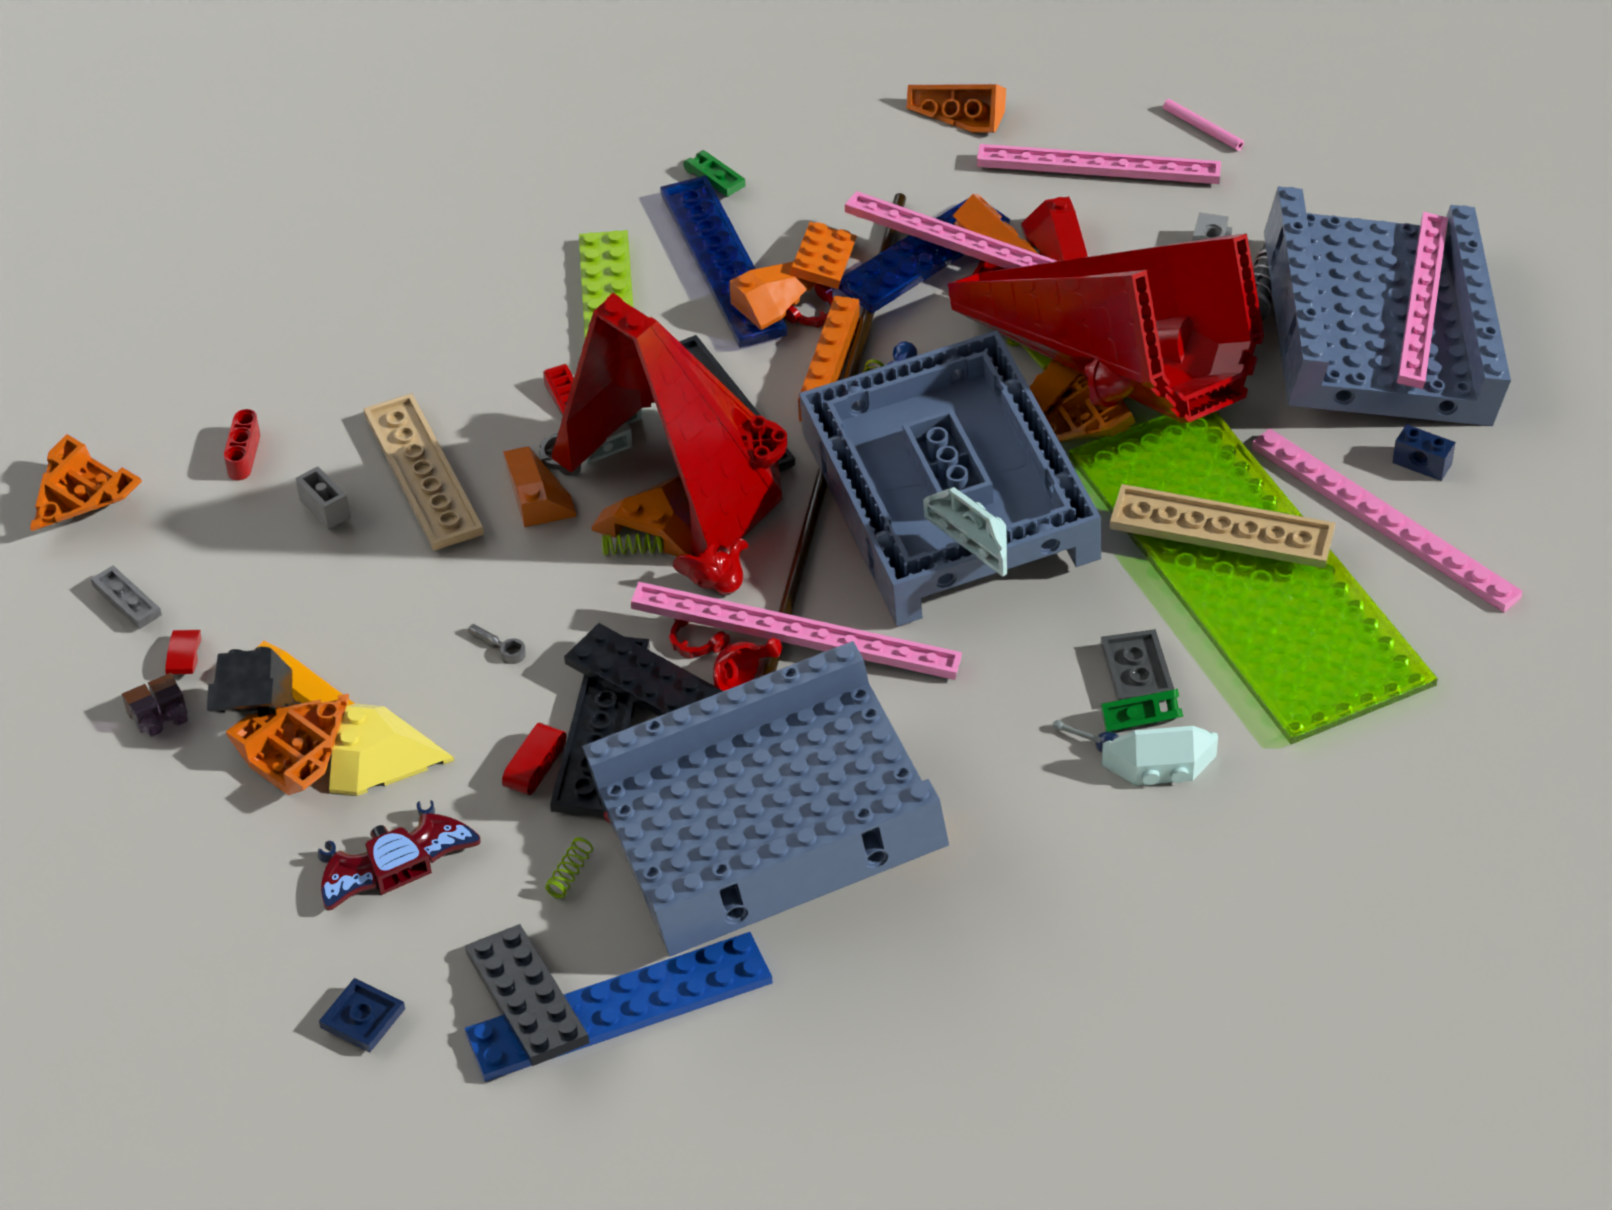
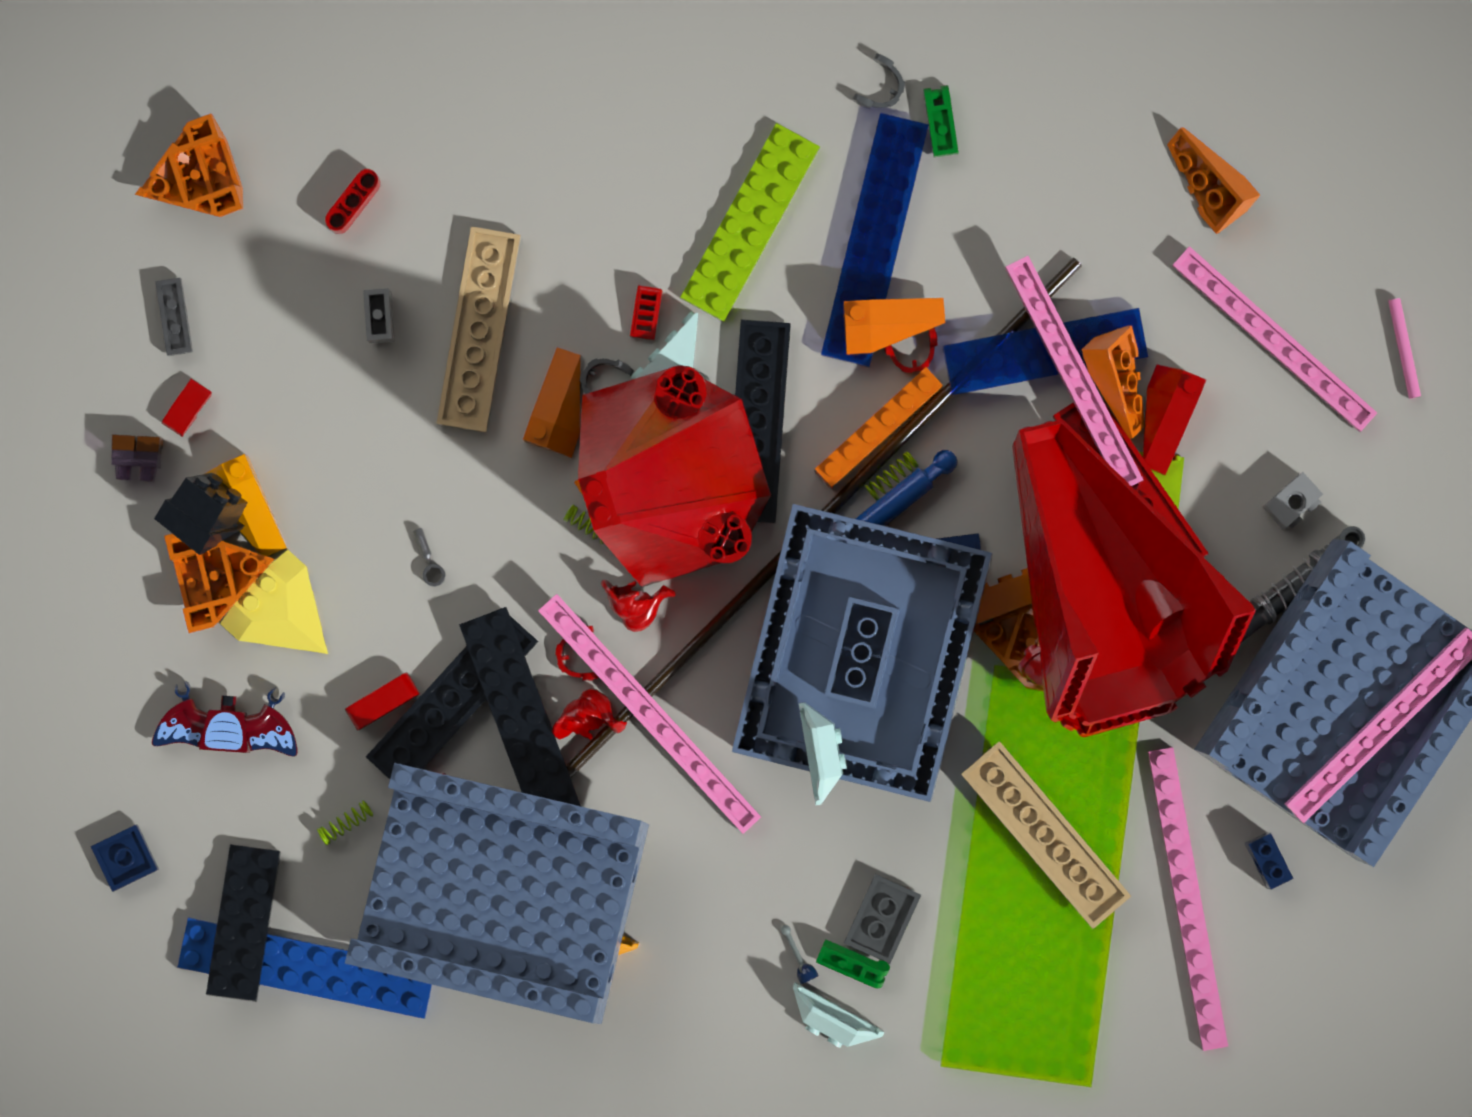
camera: 35 degrees right, 40 degrees up
(642, 191) = (888, 64): none -> dark grey piece
(823, 255) = (955, 303): orange plate -> none

